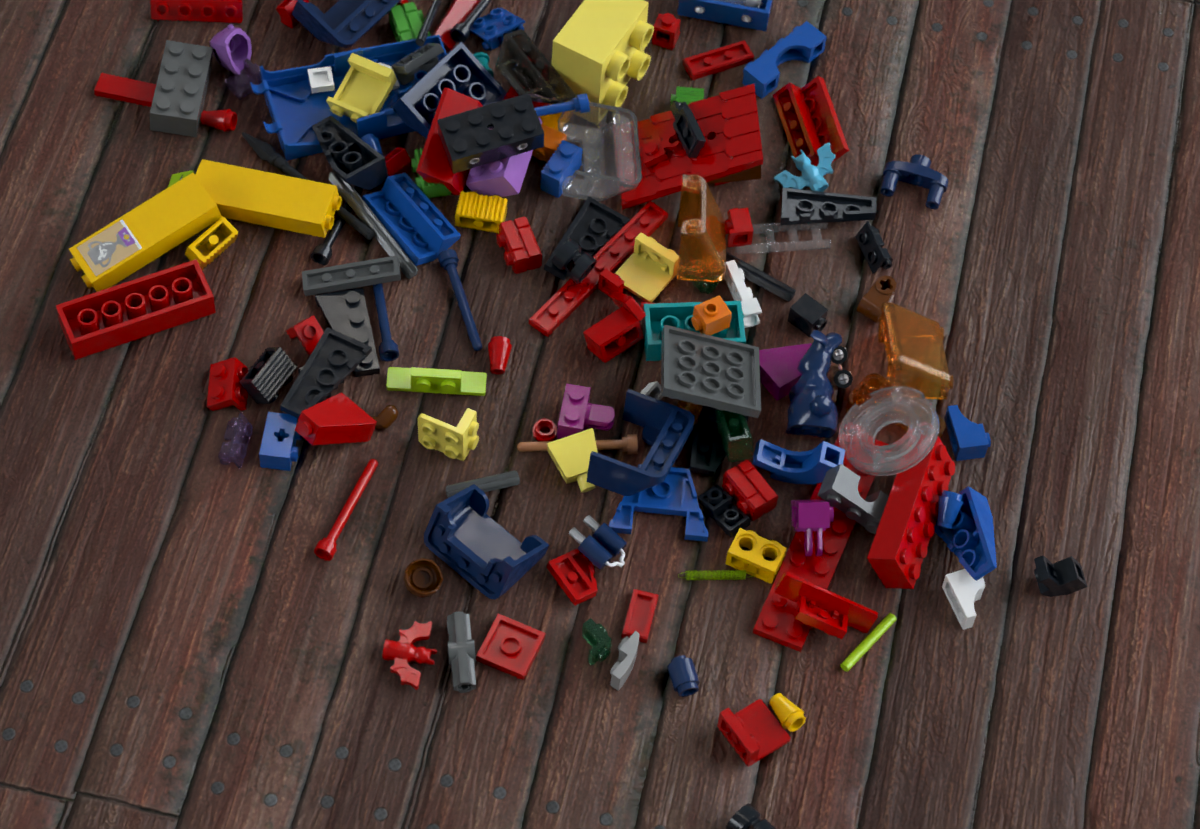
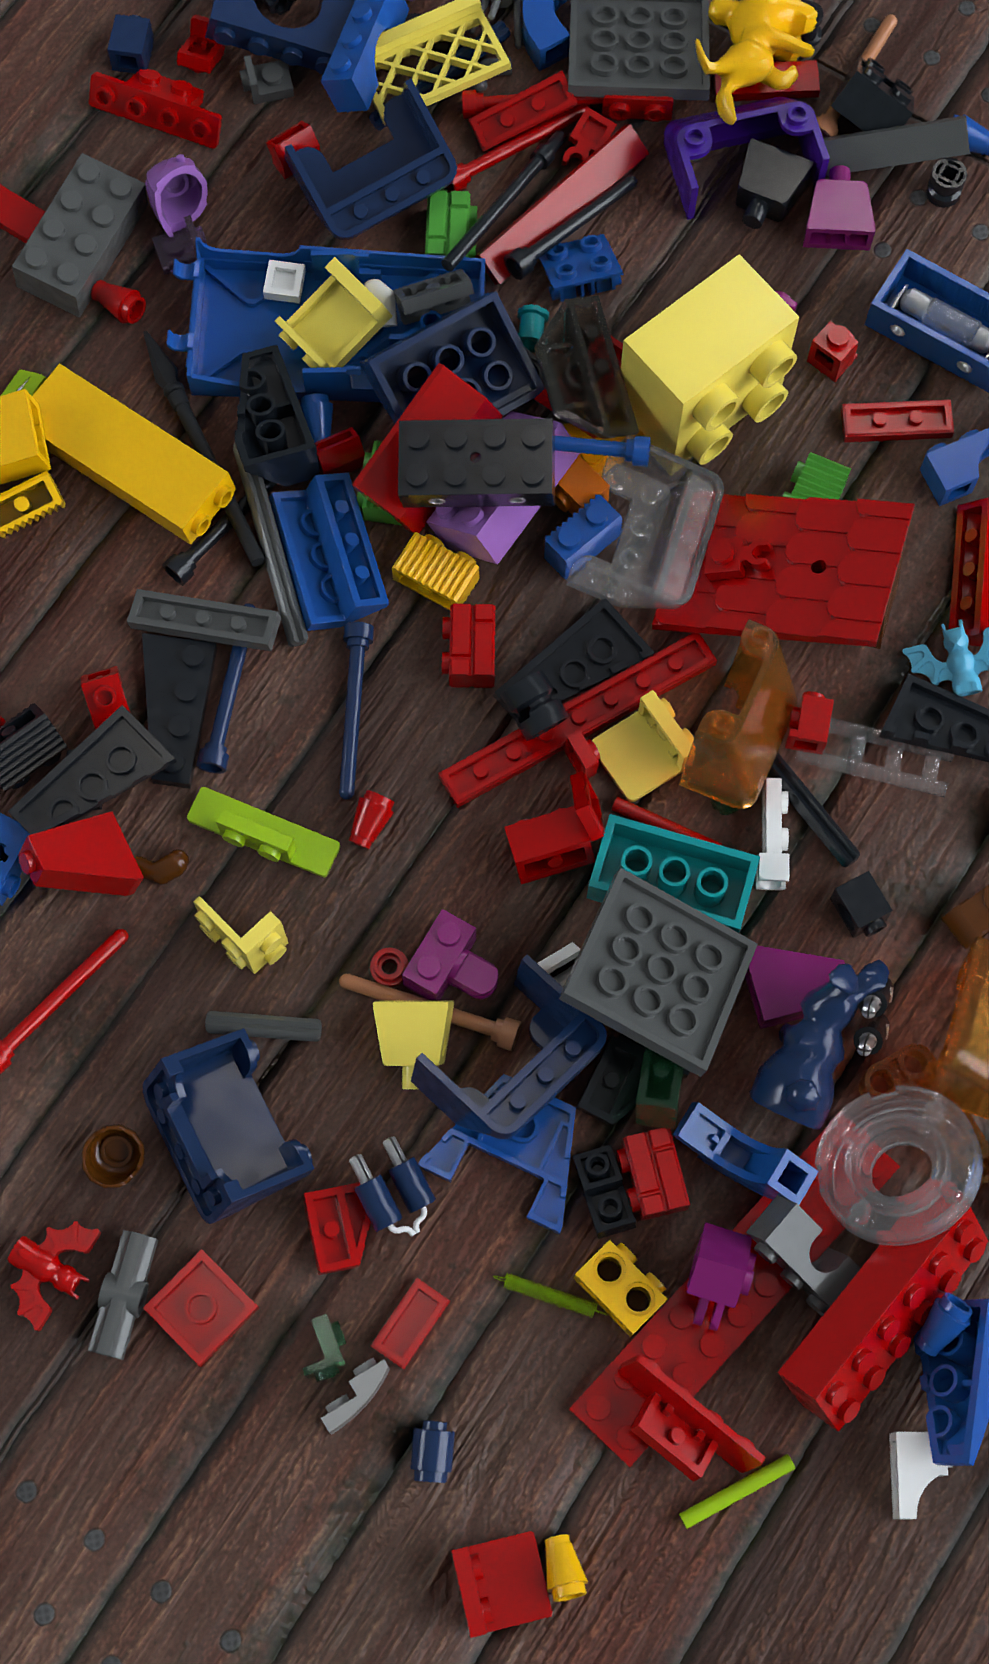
camera: 25 degrees right, 15 degrees up
(687, 129) = (786, 543): black hinge -> none
(711, 316) = (698, 875): orange brick -> none

